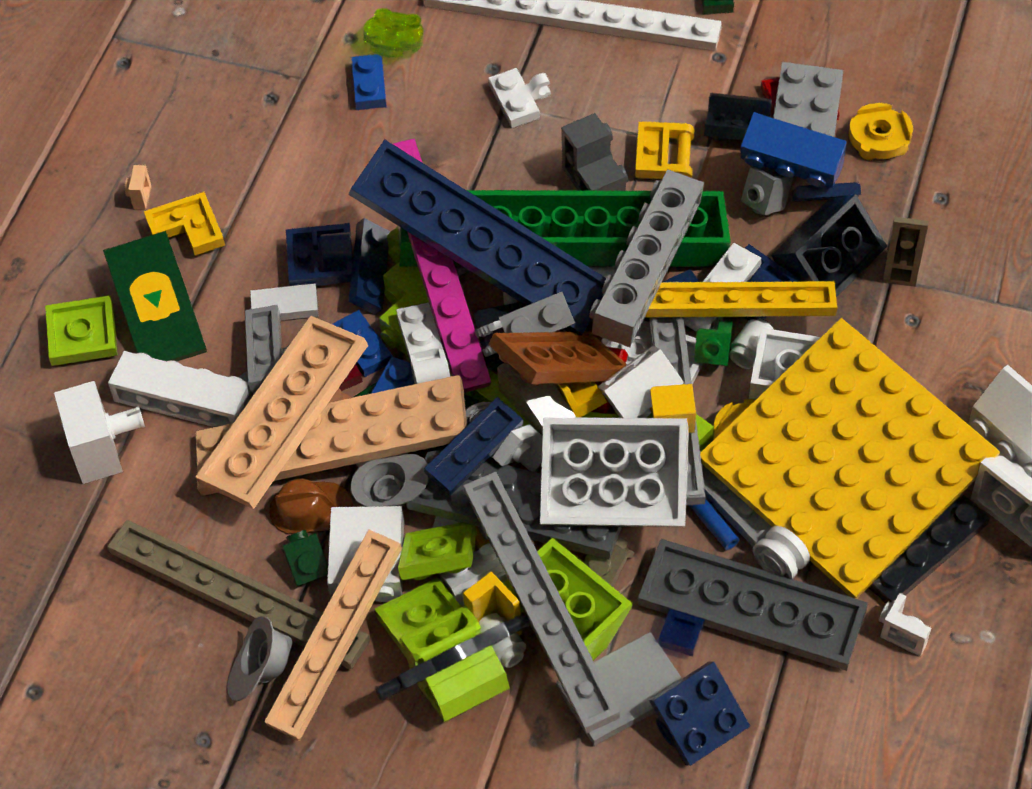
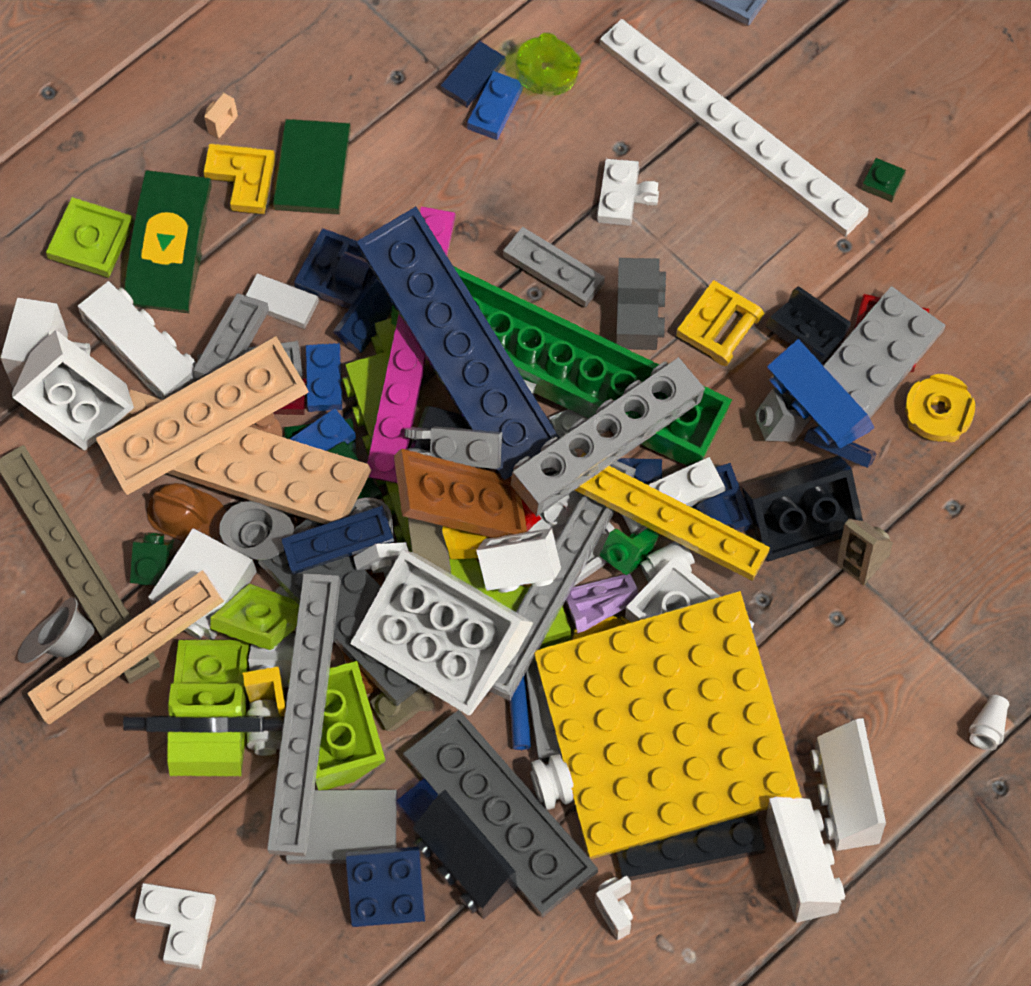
camera: 30 degrees right, 10 degrees up
(149, 448) = (71, 391): none -> white slope
(243, 192) = (312, 166): none -> dark green tile
(334, 67) = (472, 74): none -> dark blue tile
(422, 343) = (359, 416): white plate -> none
(501, 172) = (554, 267): none -> light grey plate
(674, 402) = (532, 597): yellow panel -> none
(721, 394) = (599, 600): none -> lavender wing
(753, 647) = (464, 856): none -> black slope

